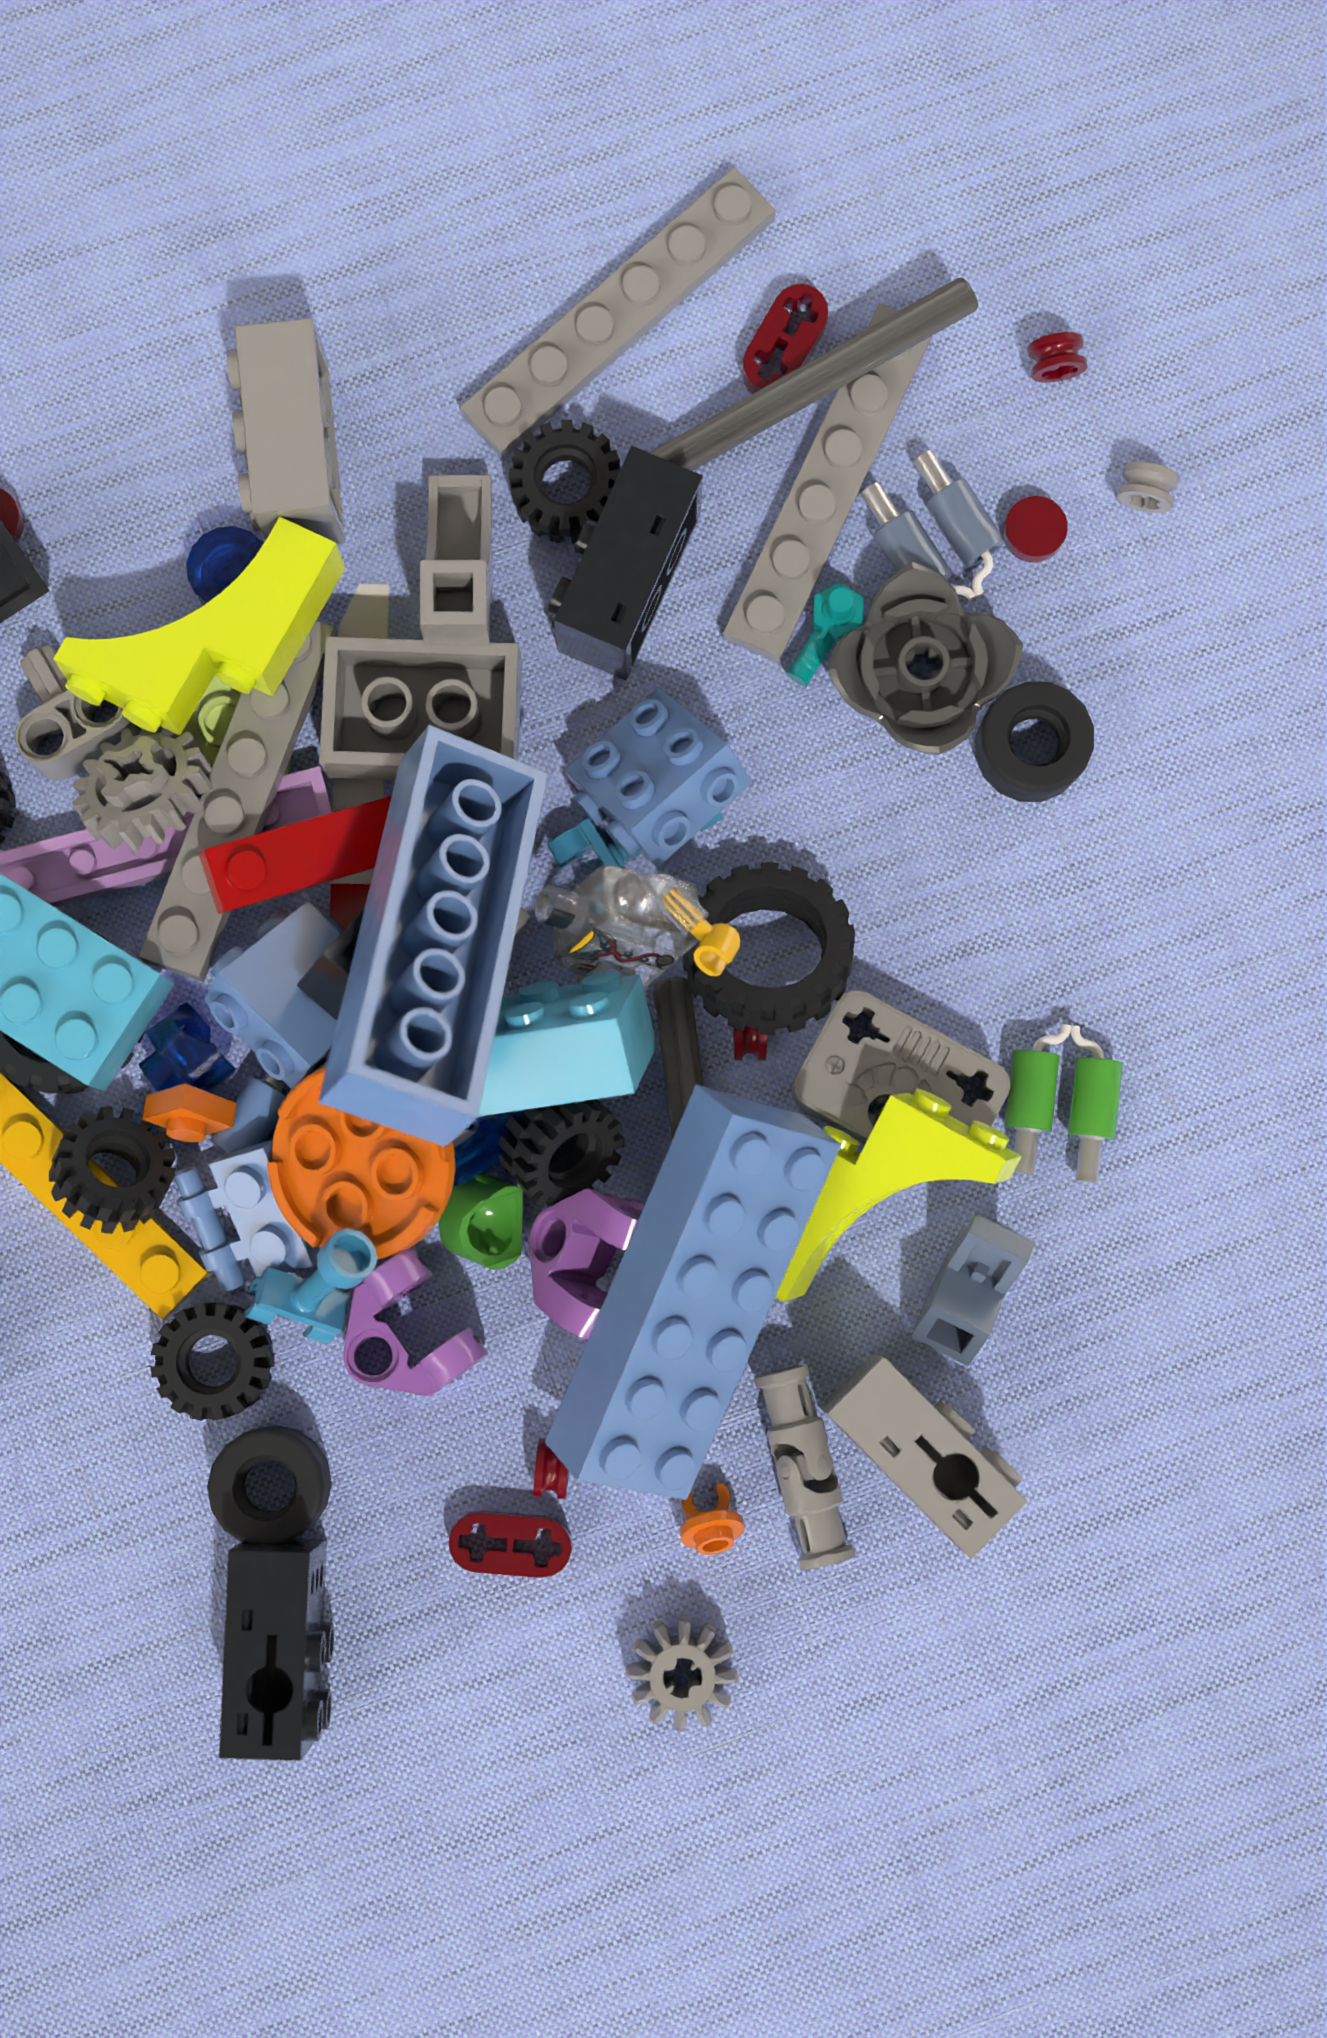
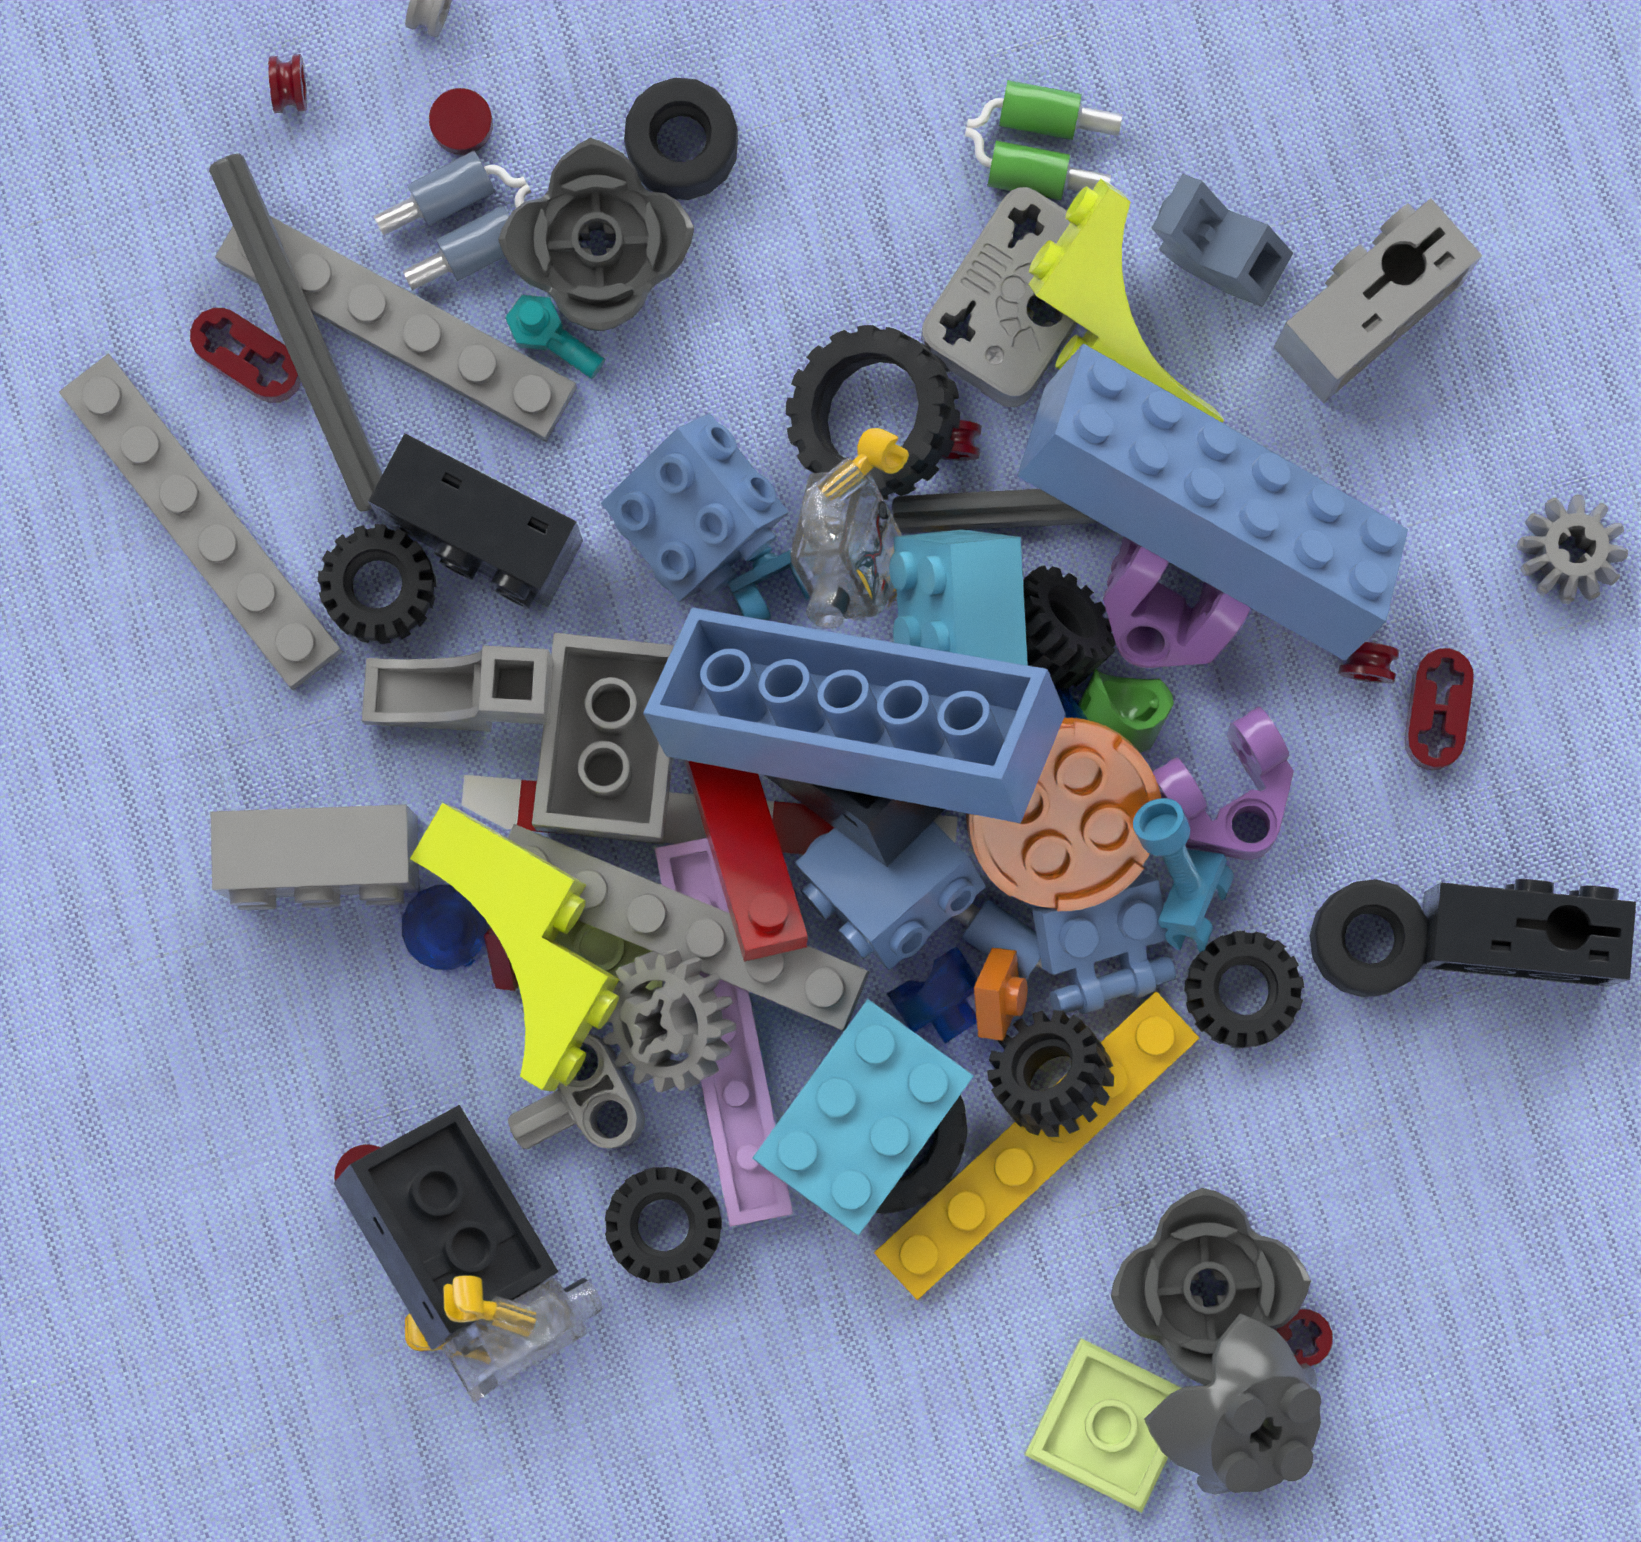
camera: 85 degrees left, 0 degrees up
(713, 1529) = (1437, 512): orange plate -> none
(796, 1429) = (1390, 417): light grey piece -> none

